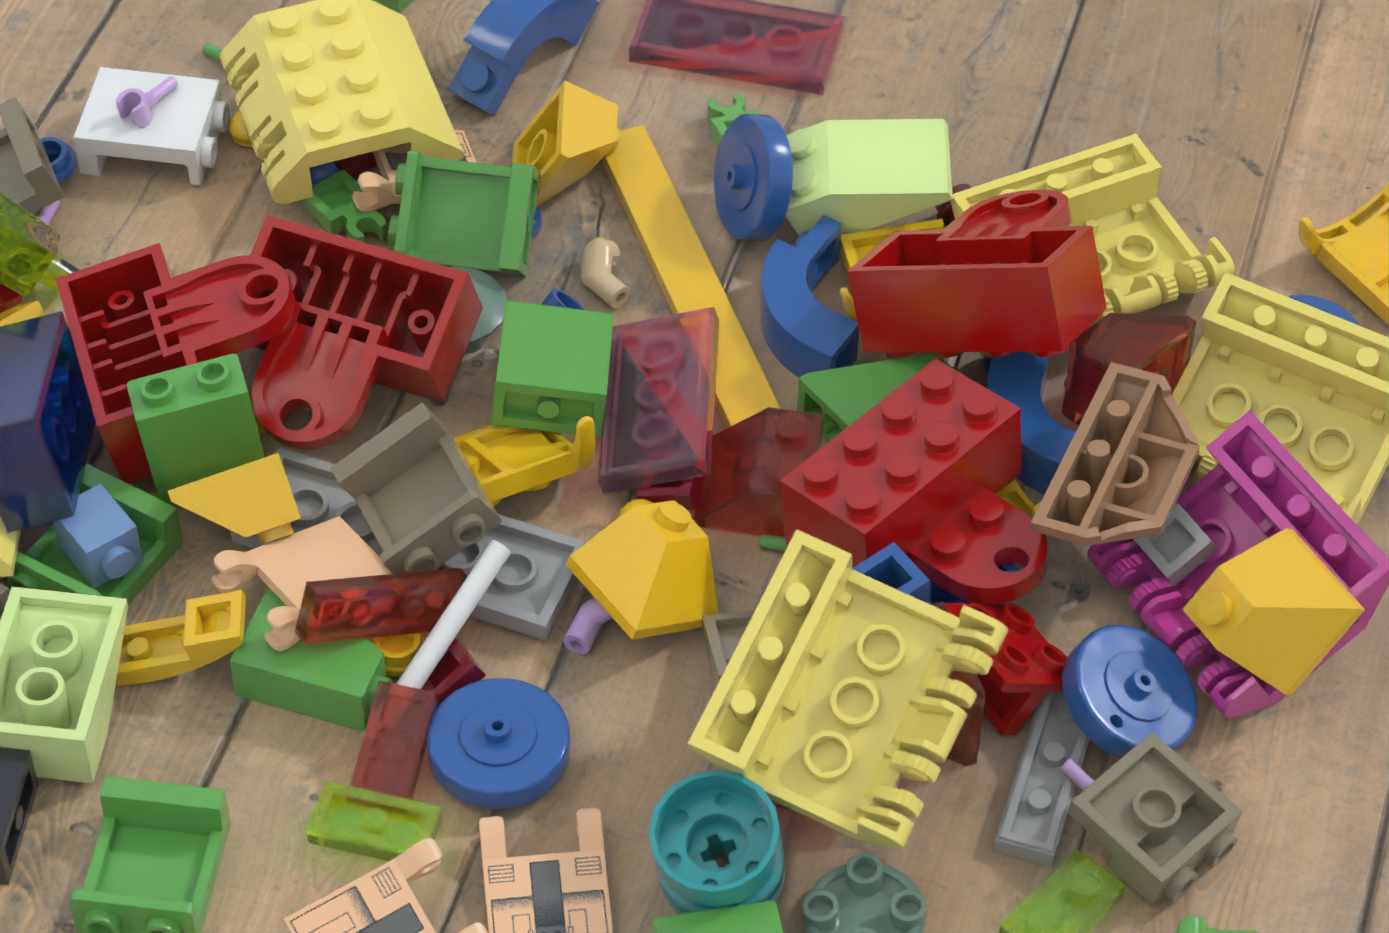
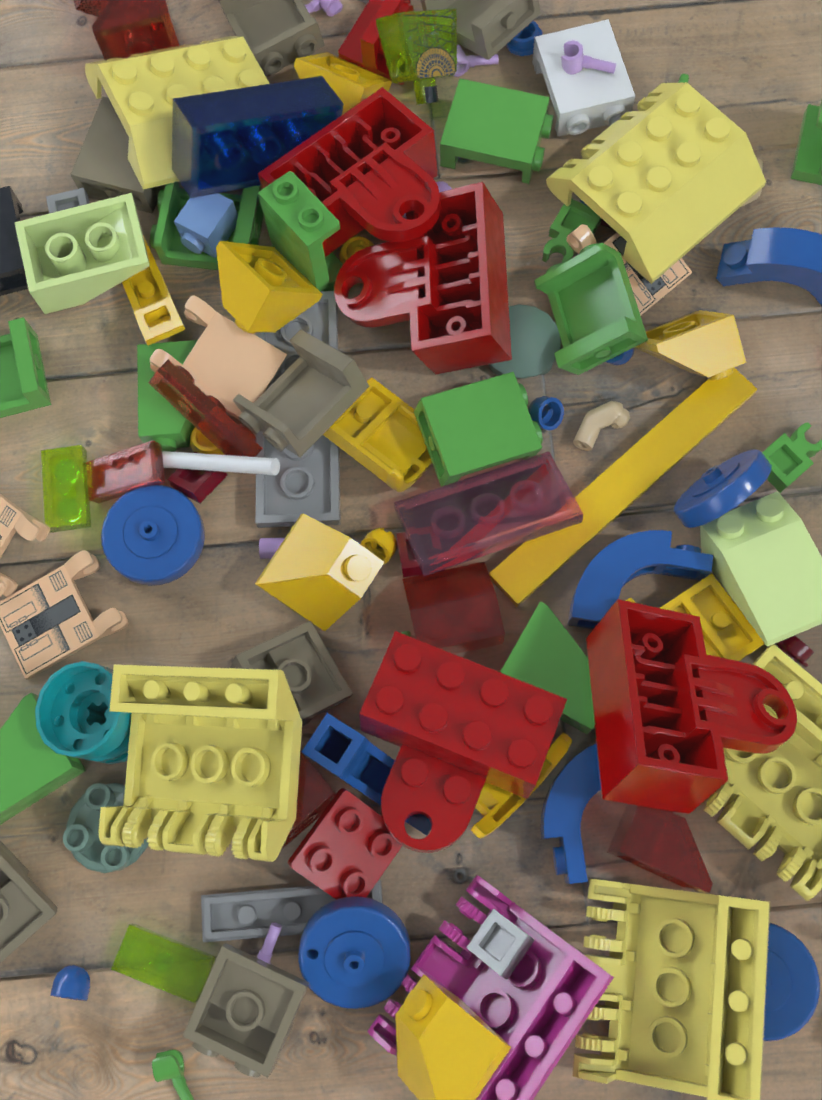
camera: 75 degrees right, 25 degrees up
(164, 206) = (496, 127): none -> bright green panel
(1121, 463) = (527, 882): medium nougat wedge -> none

